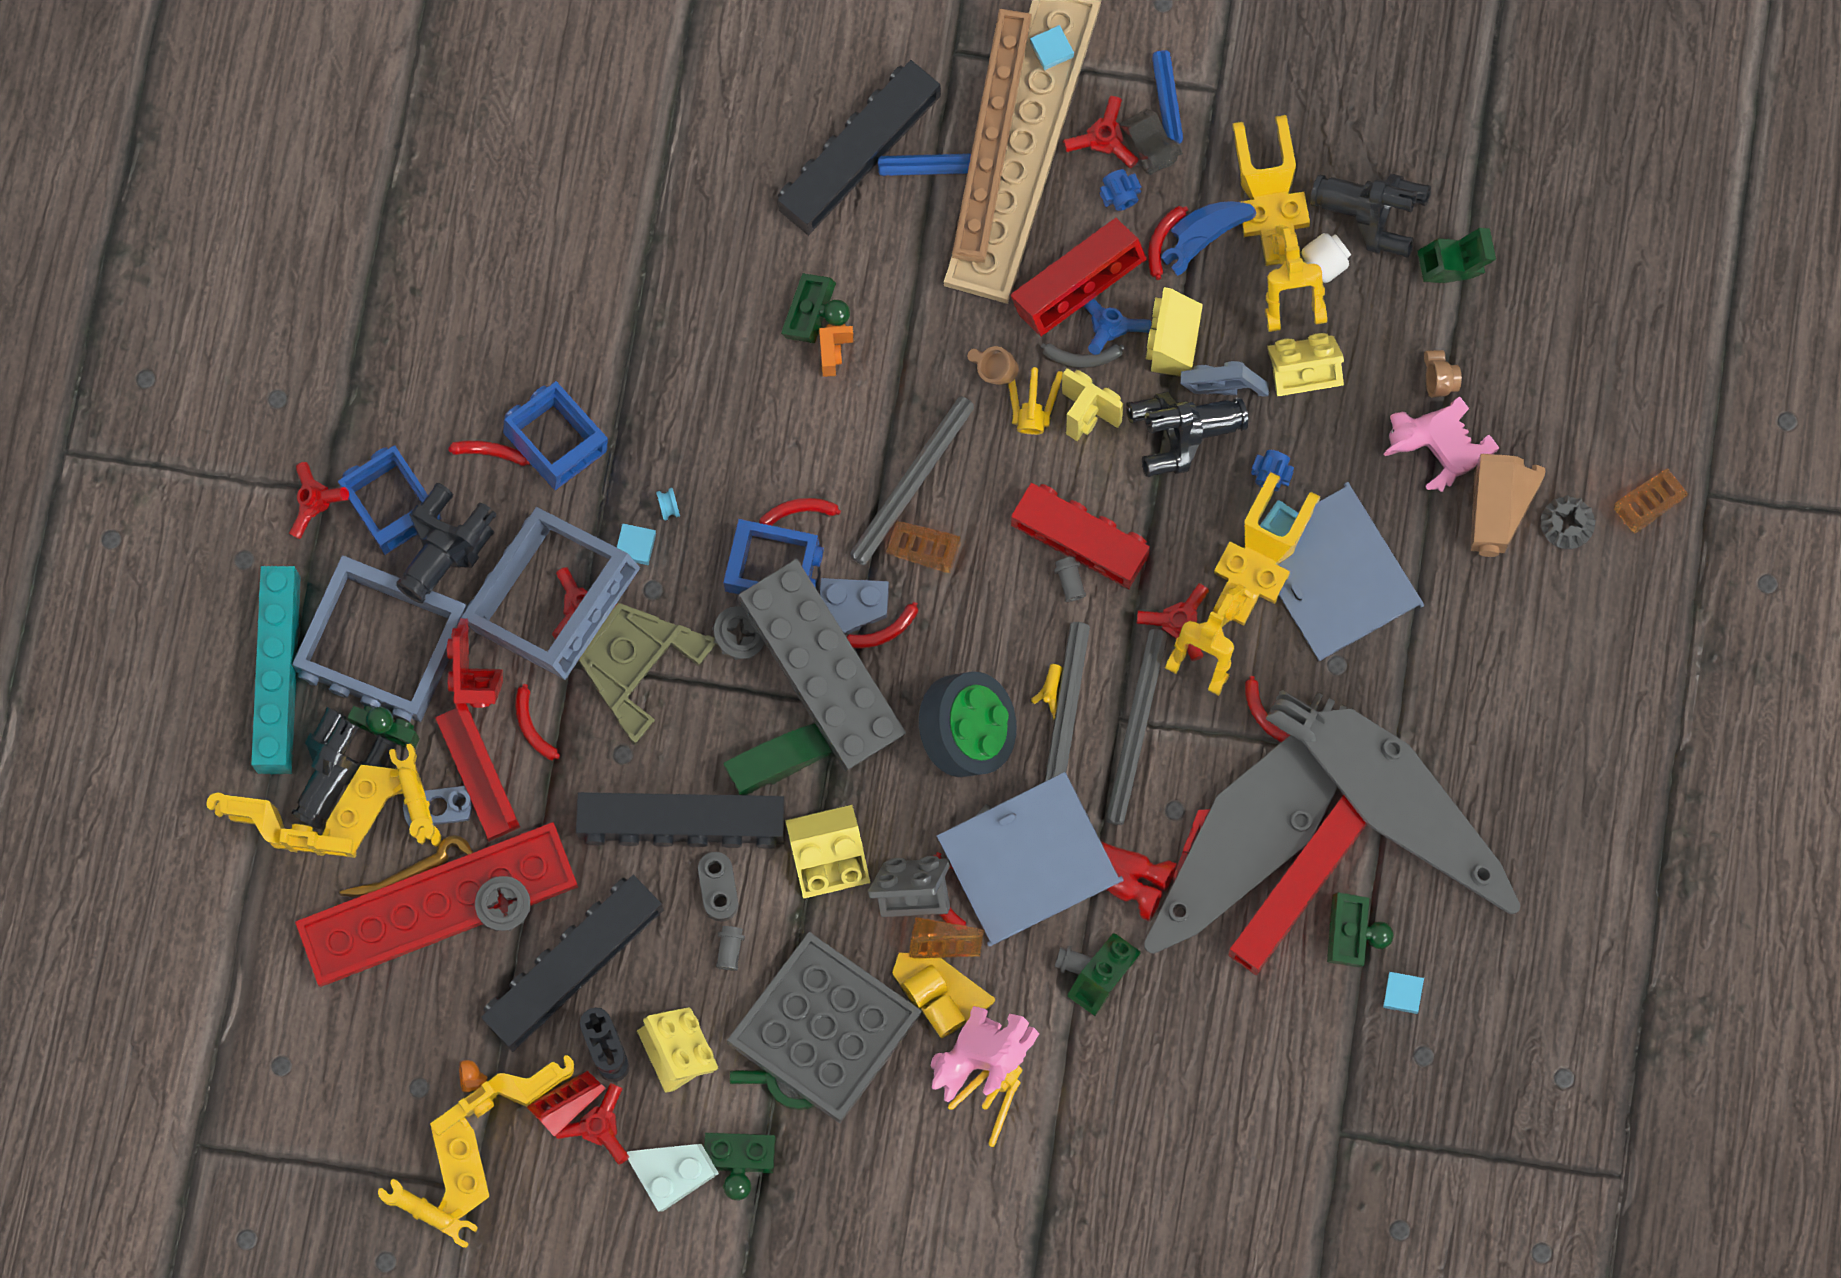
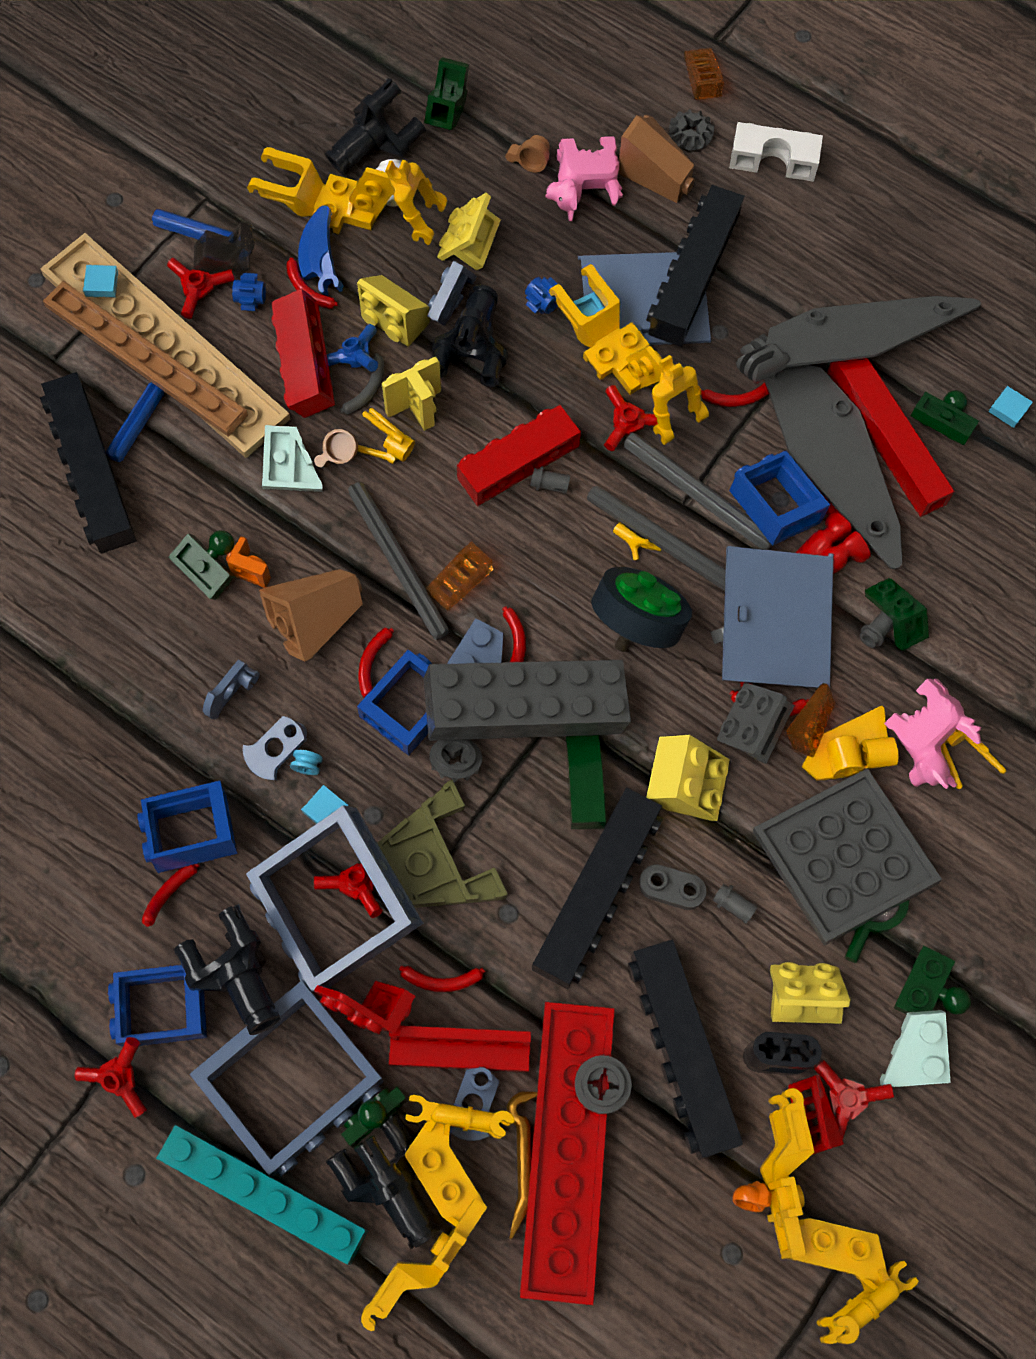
camera: 70 degrees left, 5 degrees down
(652, 460) = (257, 755): none -> piece
(716, 399) = (238, 675): none -> sand blue piece
(817, 429) = (311, 609): none -> medium nougat slope
(957, 326) = (287, 461): none -> light aqua wing
(1144, 830) = (808, 498): none -> blue window
(1391, 602) = (695, 266): none -> black brick
(1578, 592) = (797, 149): none -> white arch

